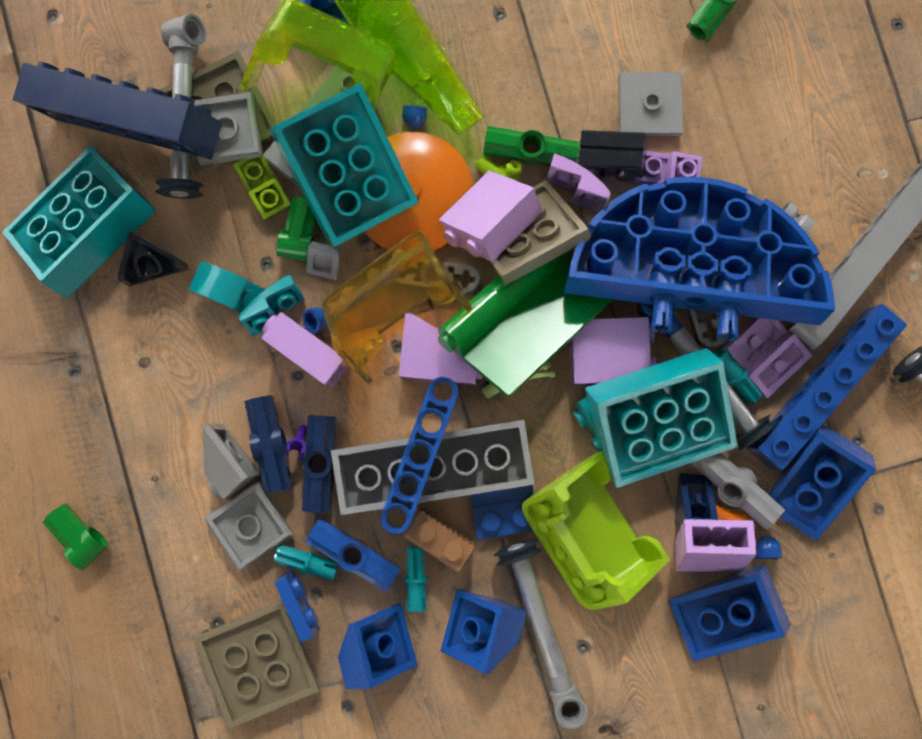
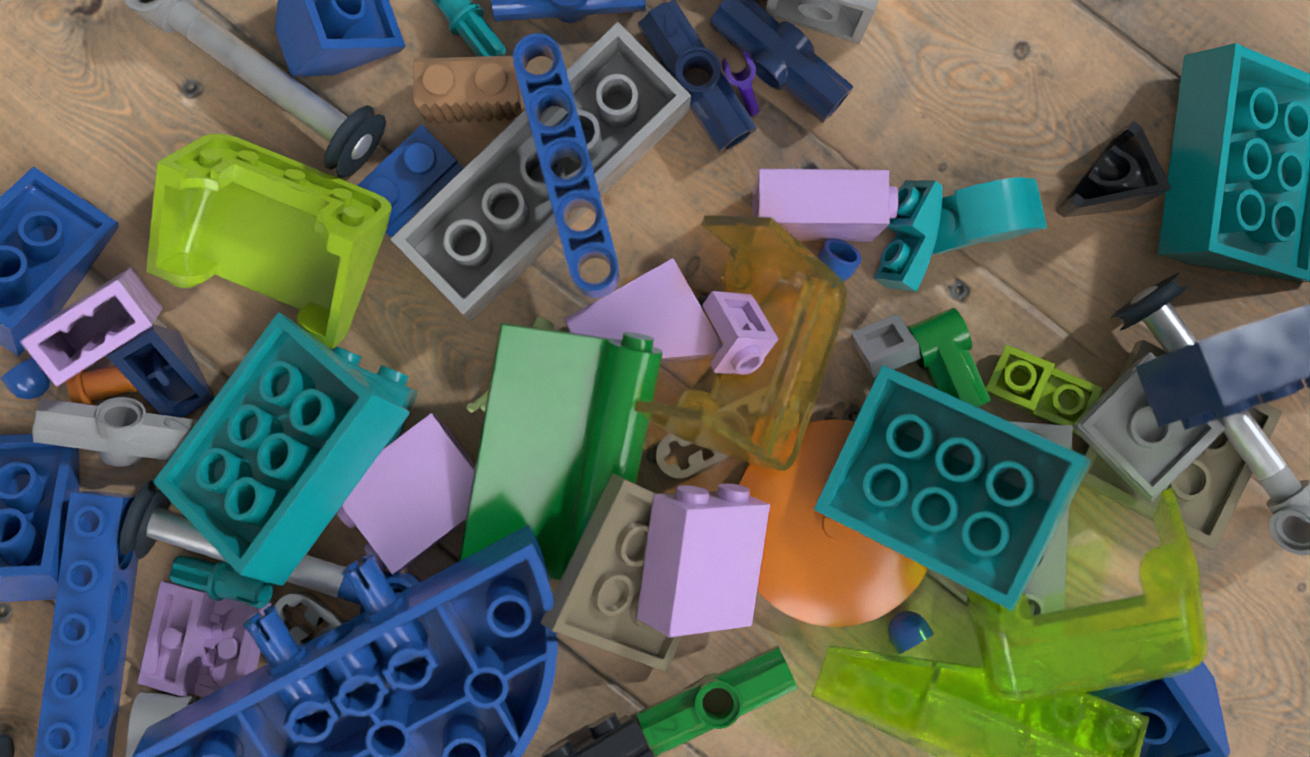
camera: 145 degrees right, 0 degrees up
(390, 315) = (743, 330): none -> lavender bracket
(511, 170) = (725, 644): lime arm -> none
(587, 188) = (599, 694): lavender slope -> none

